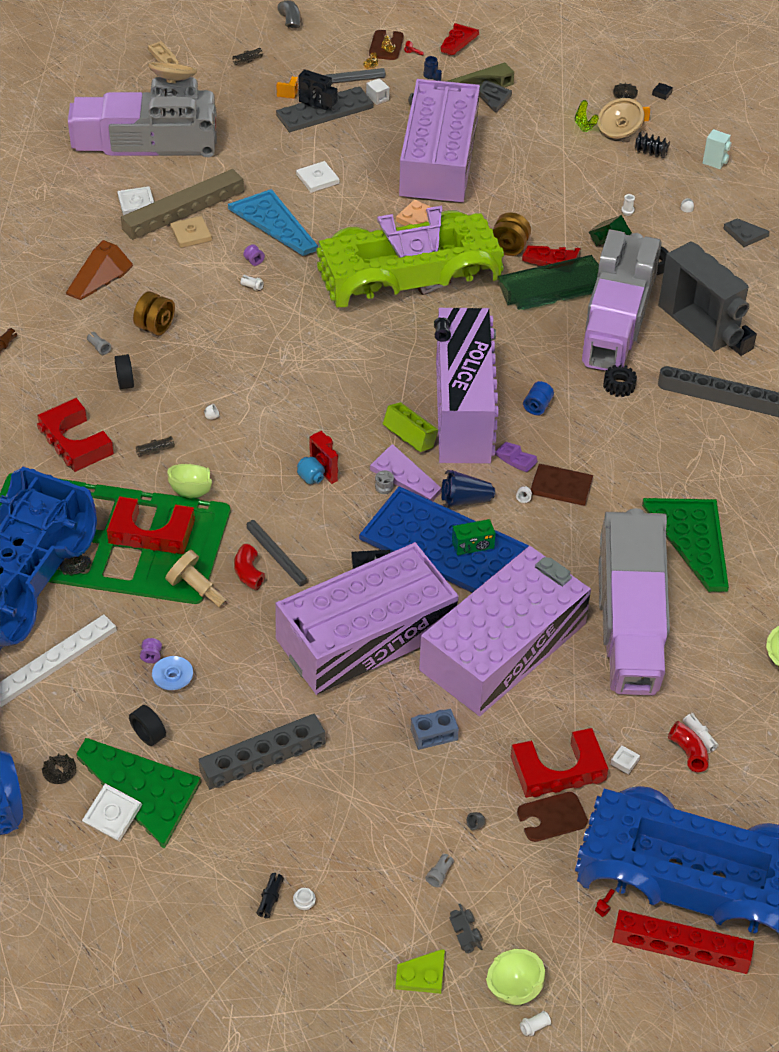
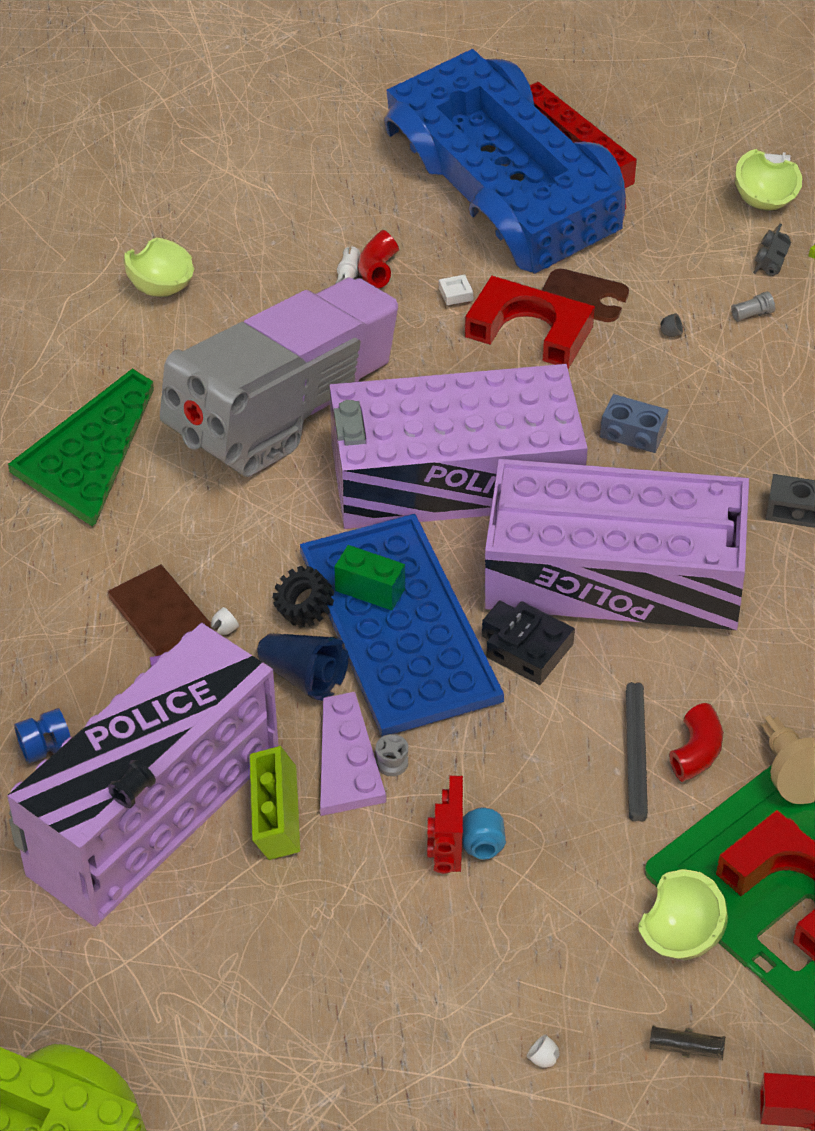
camera: 140 degrees left, 0 degrees up
(501, 518) = (312, 606): none -> black tyre

